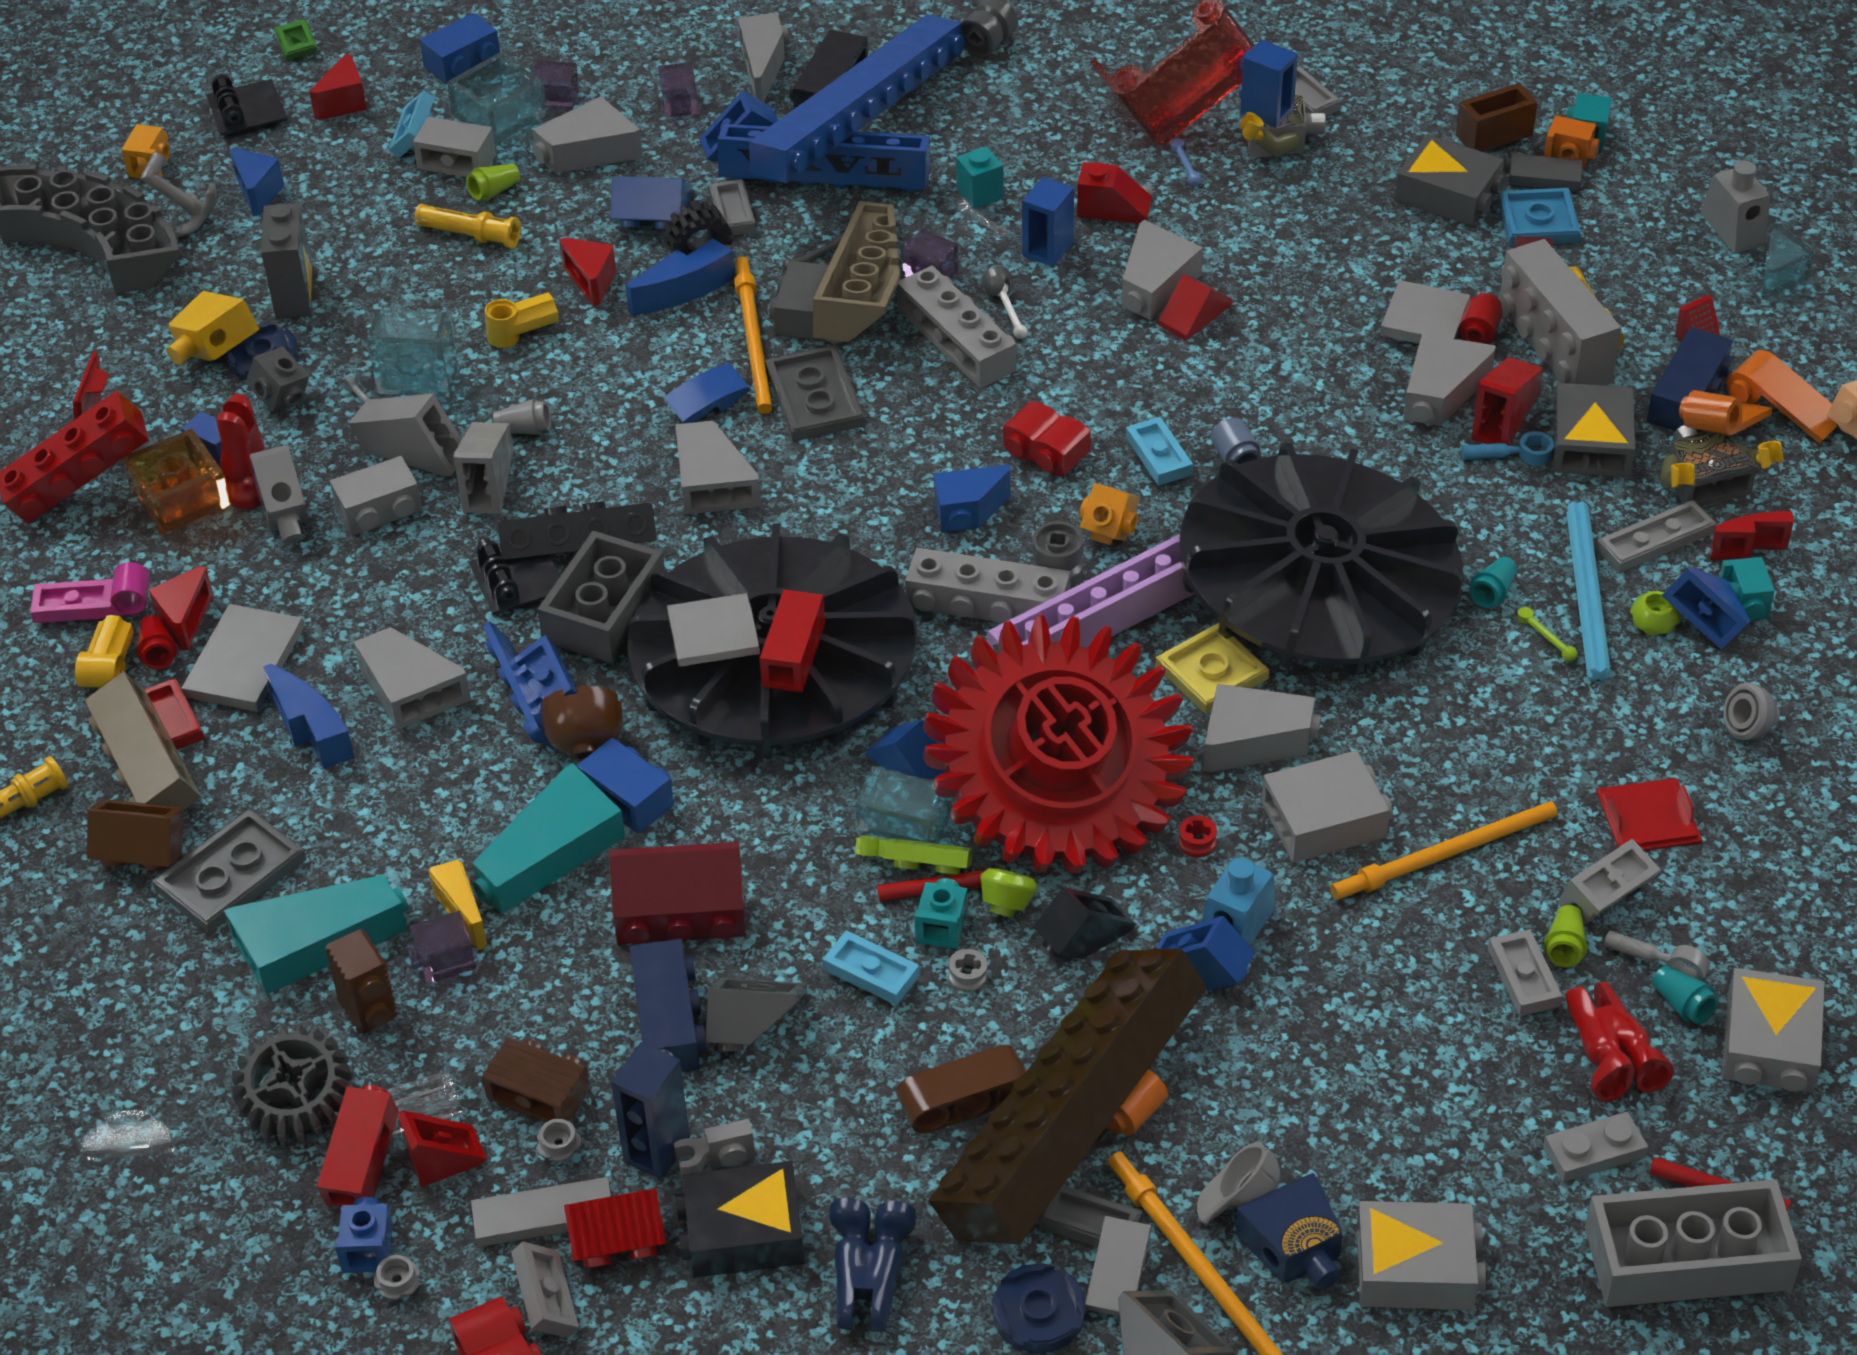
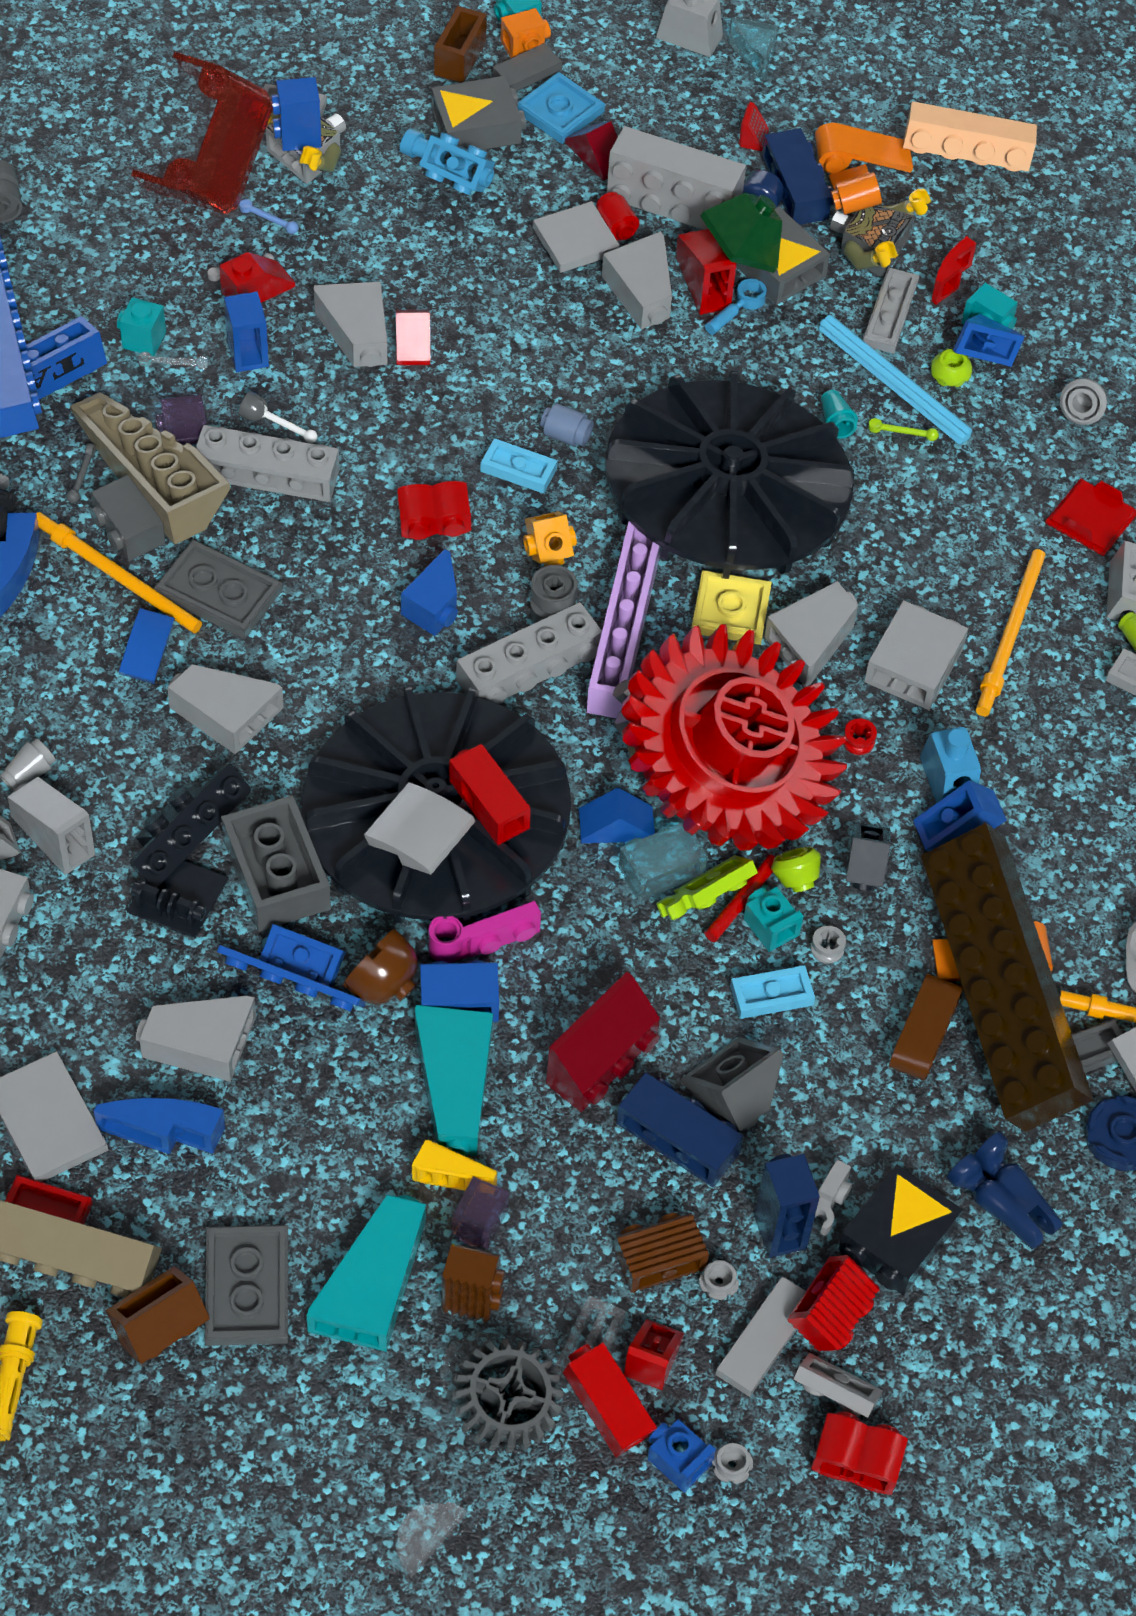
camera: 50 degrees left, 10 degrees up
(696, 758) = (482, 936): none -> dark pink plate
(1380, 198) = (458, 166): none -> dark azure brick
(1556, 377) = (747, 230): none -> dark green slope
(1637, 370) = (764, 183): none -> dark blue head

